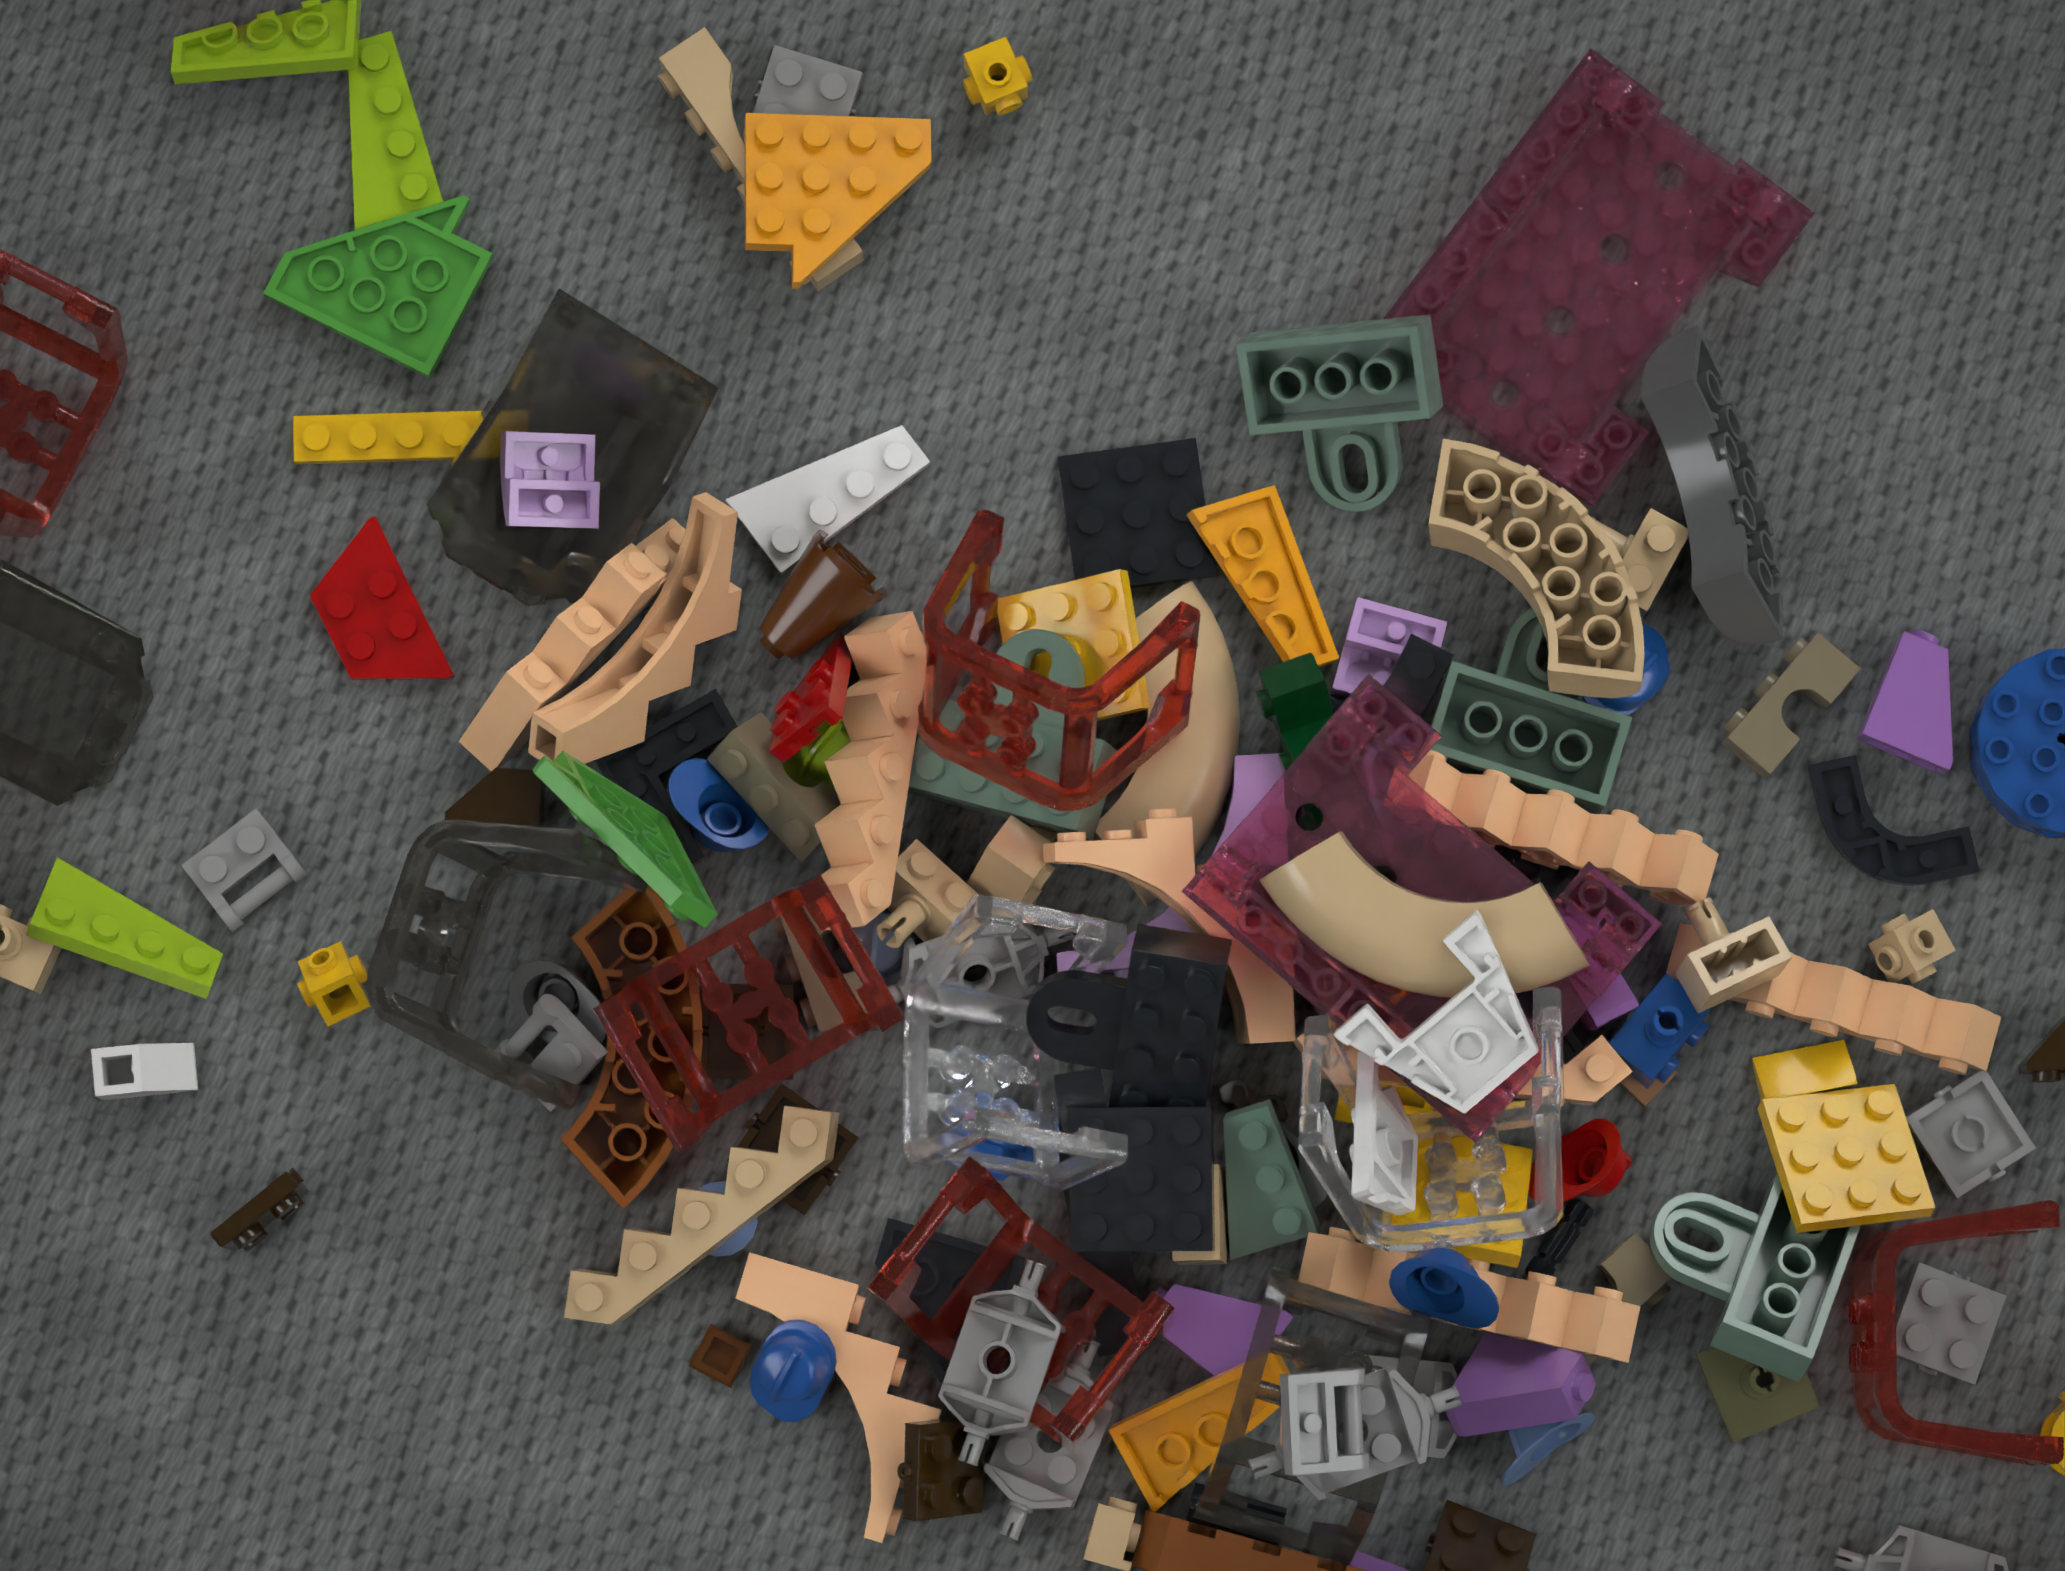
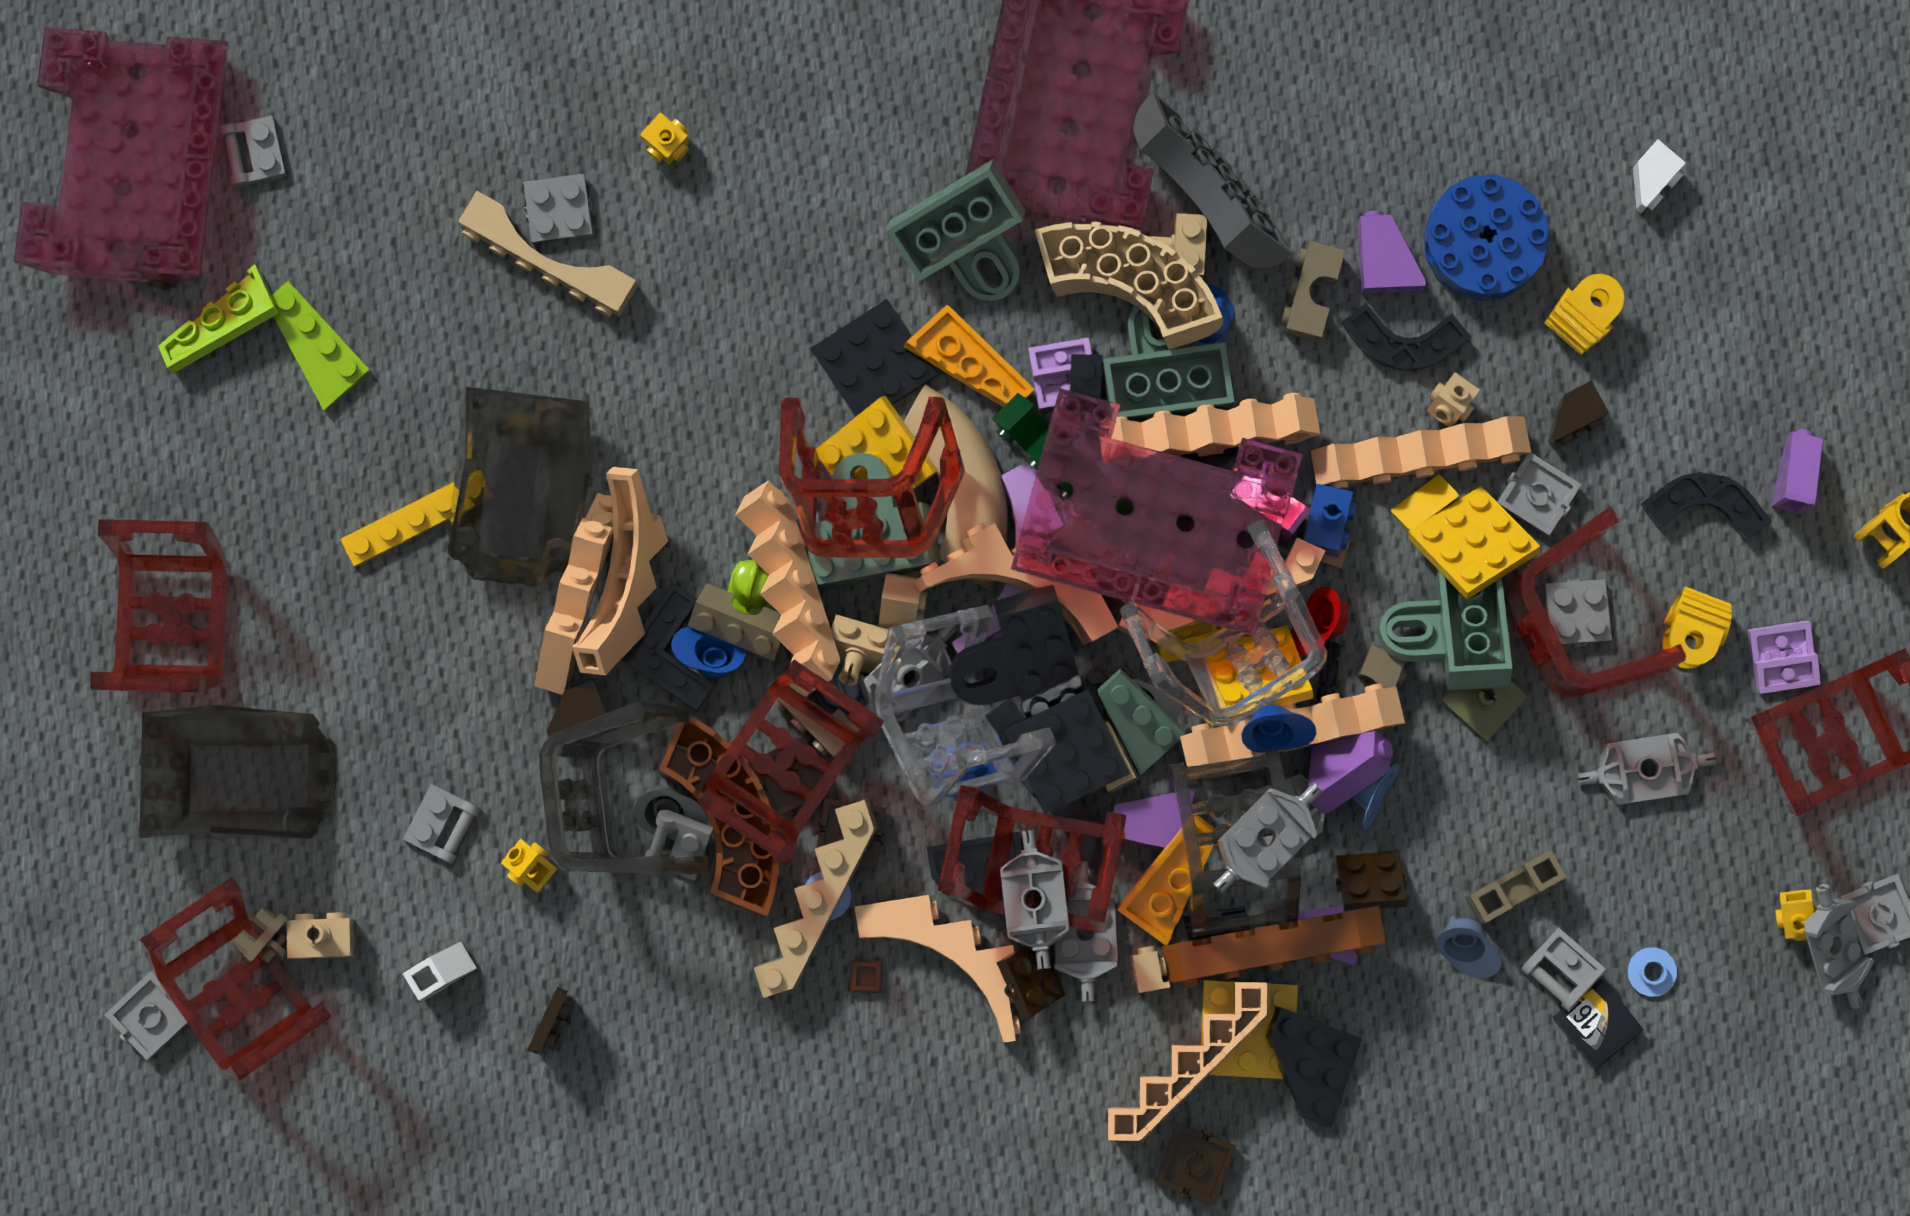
camera: 25 degrees left, 0 degrees up
(112, 929) = (381, 896): lime wing -> none
(376, 614) = (447, 634): red wing -> none
(389, 283) = (360, 433): bright green wing -> none
(549, 480) = (513, 504): lavender slope -> none
(634, 831) = (667, 688): bright green wing -> none
(793, 1370) = (913, 964): blue piece -> none
(814, 700) = (735, 560): red wing -> none
(818, 598) = (708, 499): reddish brown cone -> none
(824, 180) = (593, 248): light orange wing -> none
(826, 494) = (679, 442): white wing -> none
(1311, 1421) = (1240, 843): light grey plate -> none
(1383, 1144) = (1200, 662): white wing -> none
(1400, 933) = (1166, 530): tan brick -> none
(1468, 1041) = (1222, 577): white wing -> none
(1728, 960) = (1350, 458): tan brick -> none

